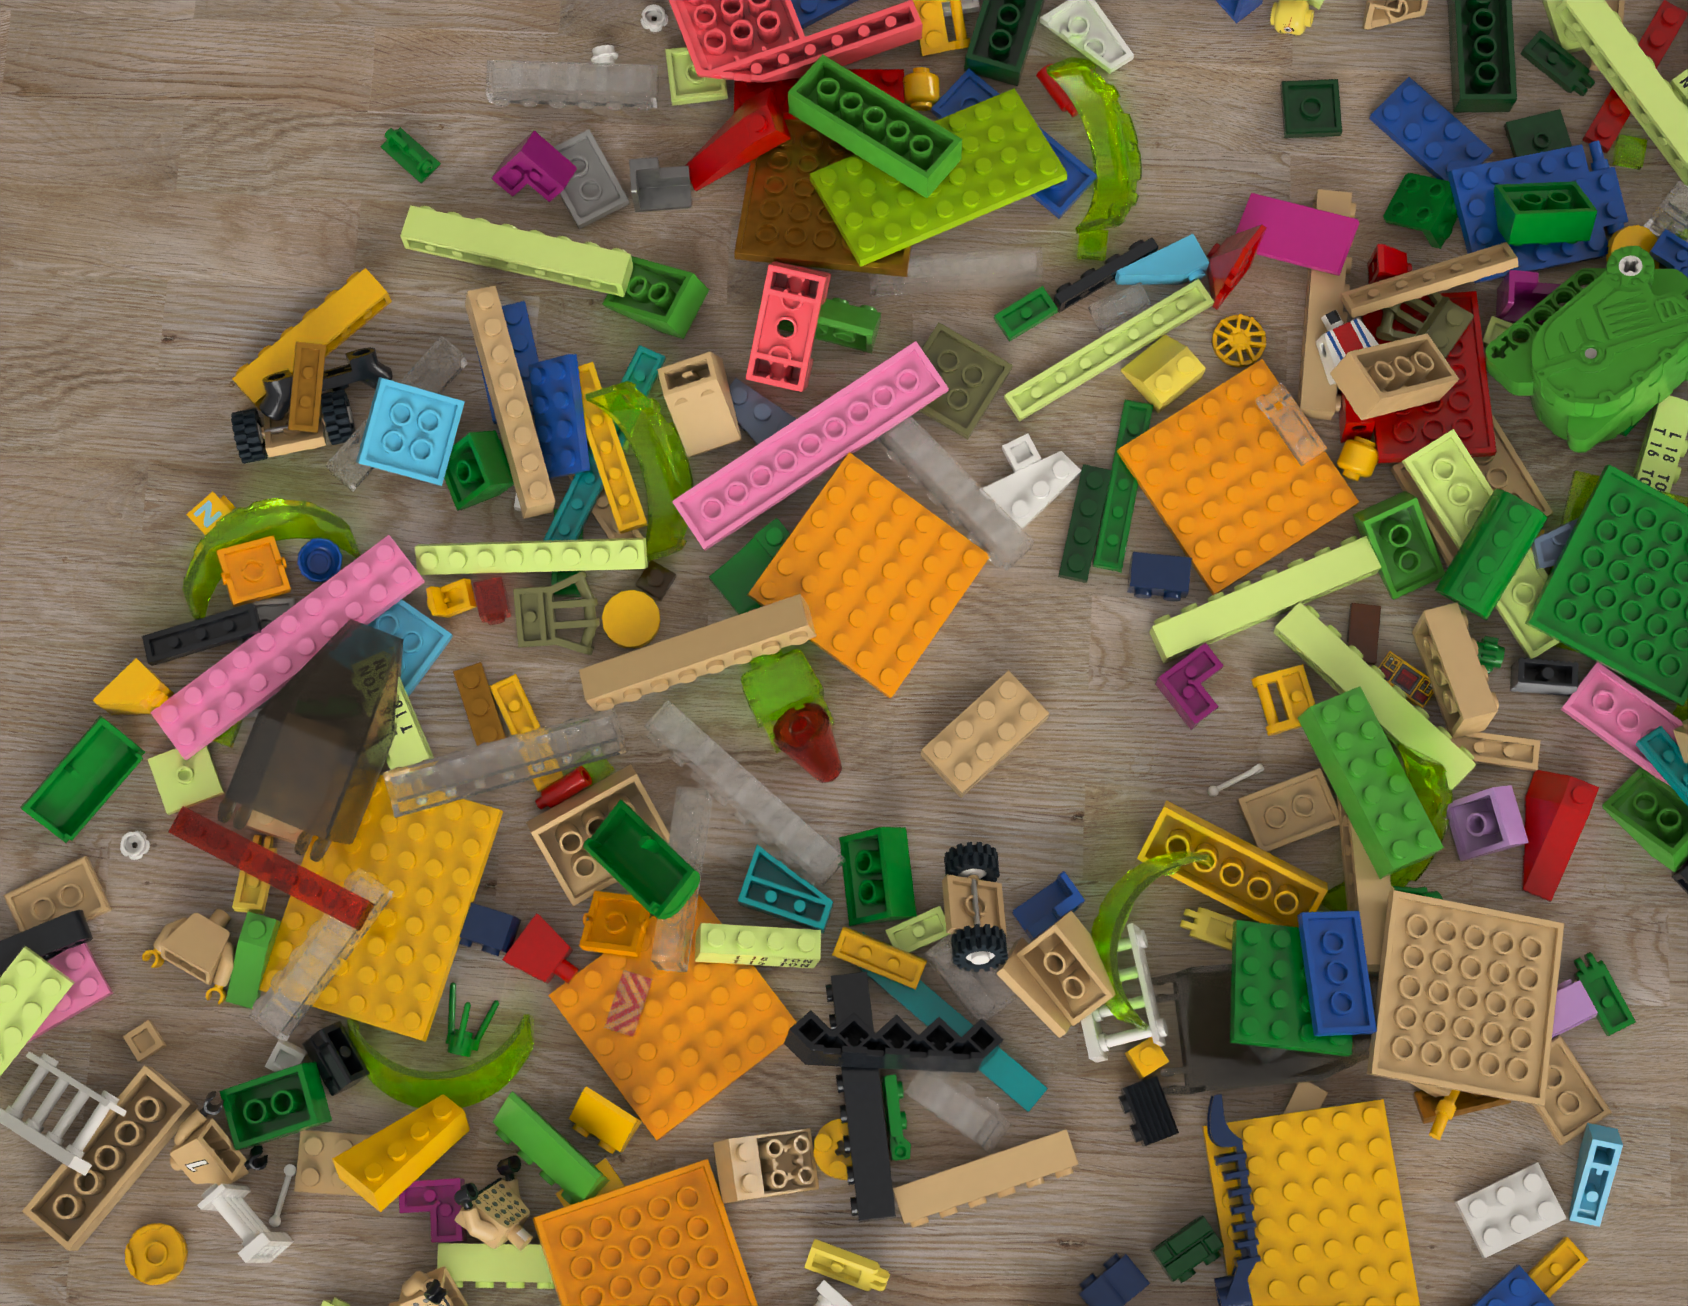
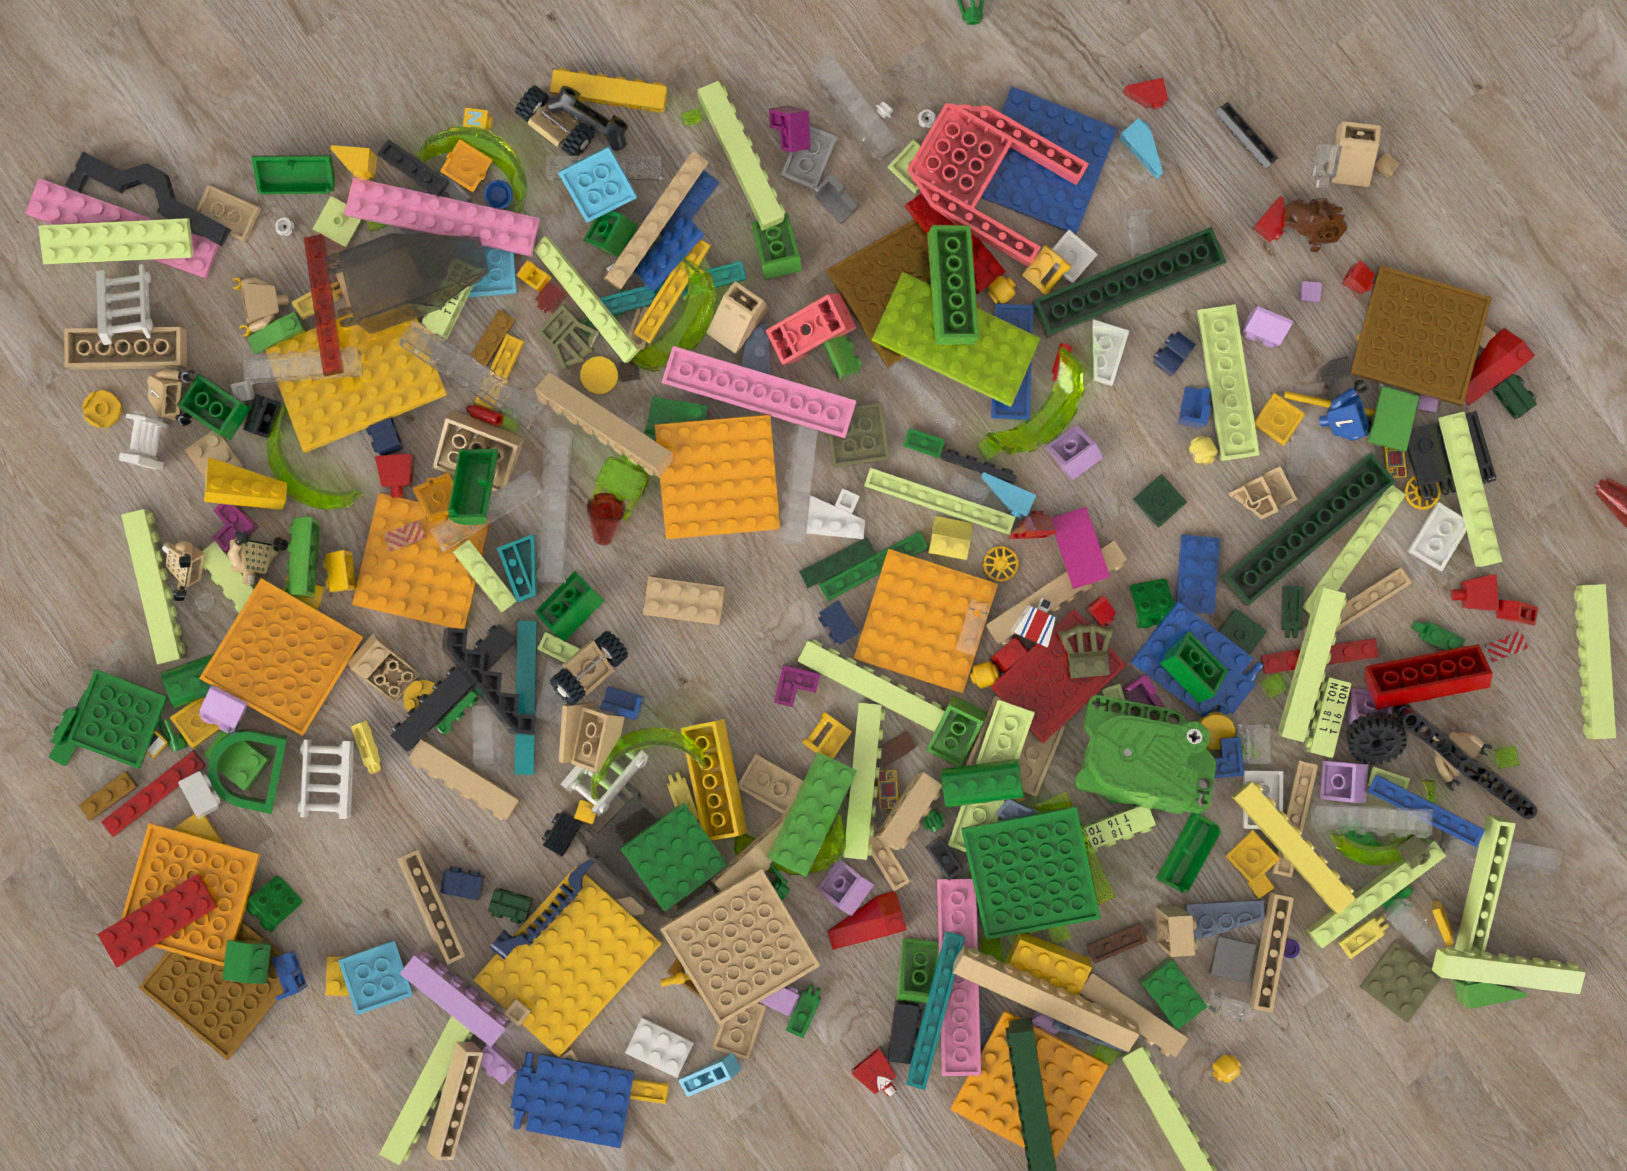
camera: 45 degrees right, 10 degrees up
(144, 1041) = (196, 315): tan tile -> none
(289, 1170) = (193, 439): white hinge -> none
(306, 387) = (575, 112): pearl gold plate -> none
(409, 154) = (748, 55): green hinge -> none
(424, 271) = (691, 117): none -> clear neon green plate
(461, 1041) = (321, 468): green plant -> none
(744, 136) = (894, 220): red wedge -> none
(879, 957) = (528, 640): yellow tile -> none
(1177, 155) = (1074, 452): none -> lavender slope
(1213, 790) = (751, 737): white hinge -> none
(1336, 973) = (697, 873): blue plate -> none
(1394, 376) = (1035, 661): tan brick -> none
(1429, 280) = (1107, 637): tan plate -> none

